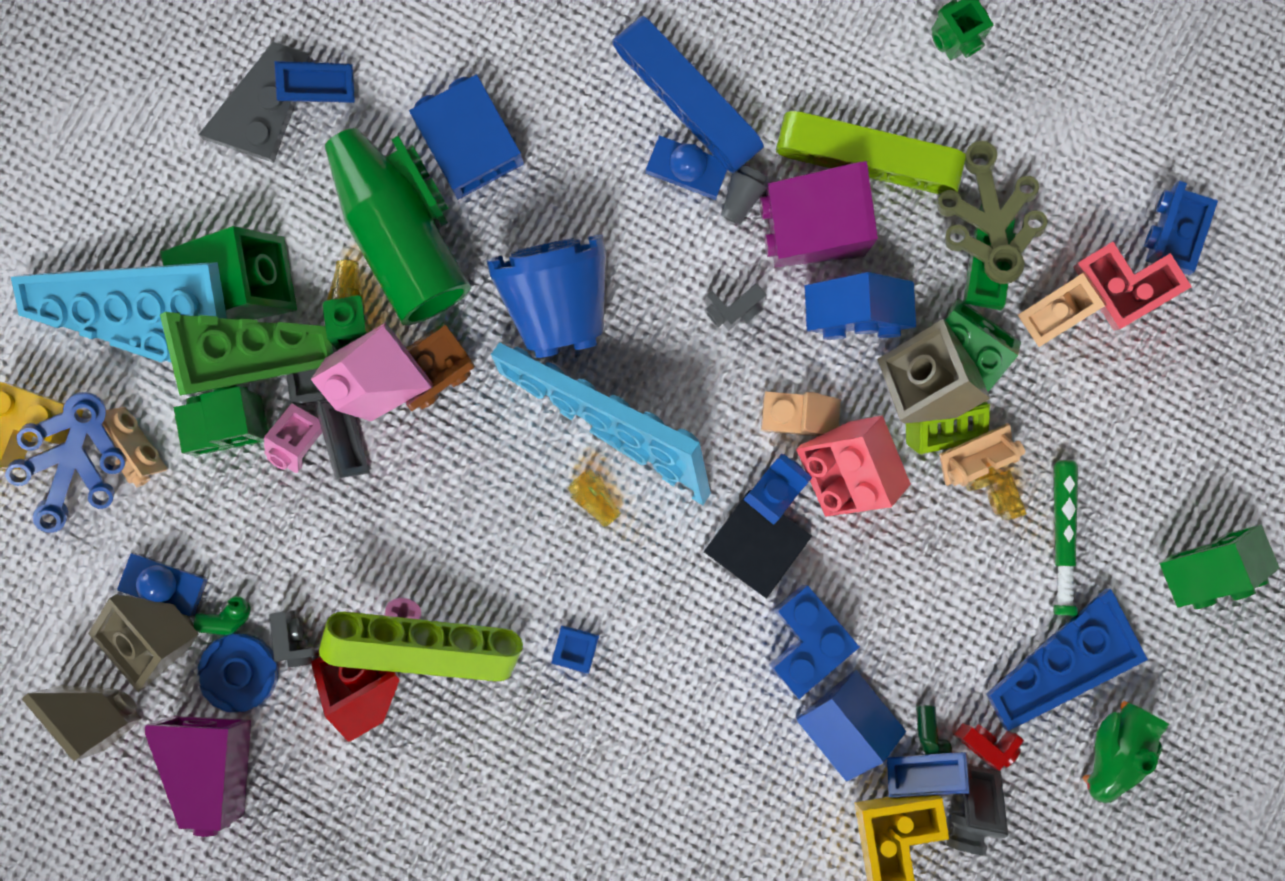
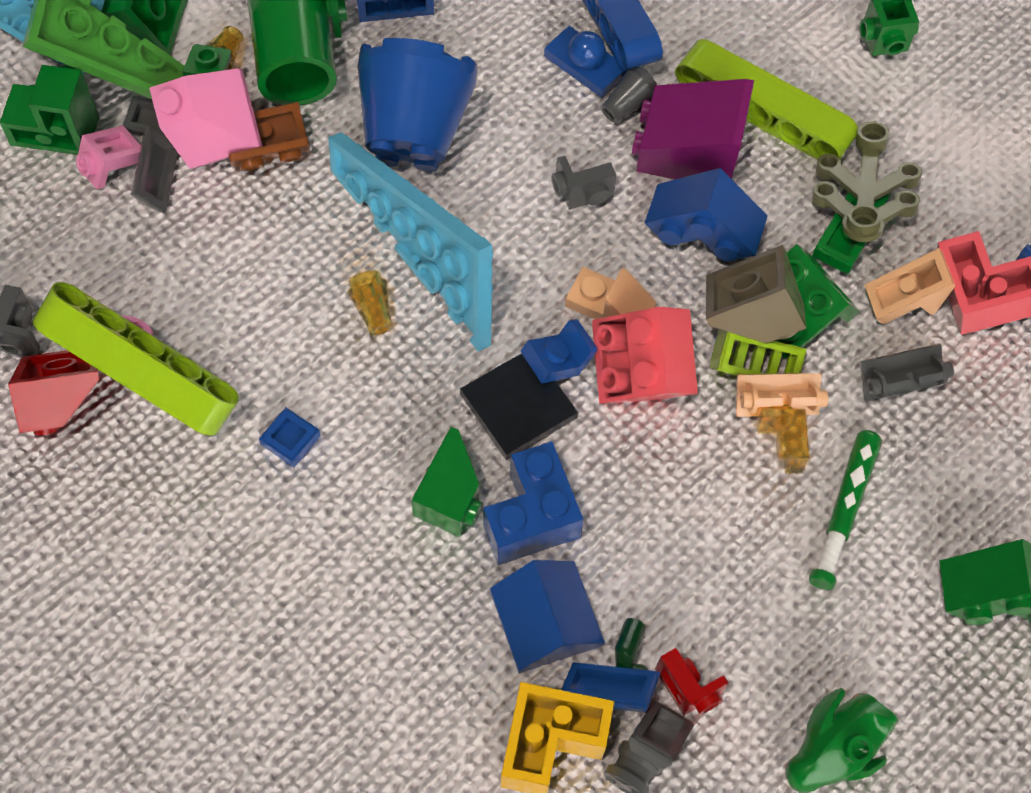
camera: 20 degrees right, 20 degrees down
(732, 649) = (449, 489): none -> green slope
(1069, 401) = (904, 372): none -> dark grey hinge
(1072, 661) = (823, 631): blue wing -> none

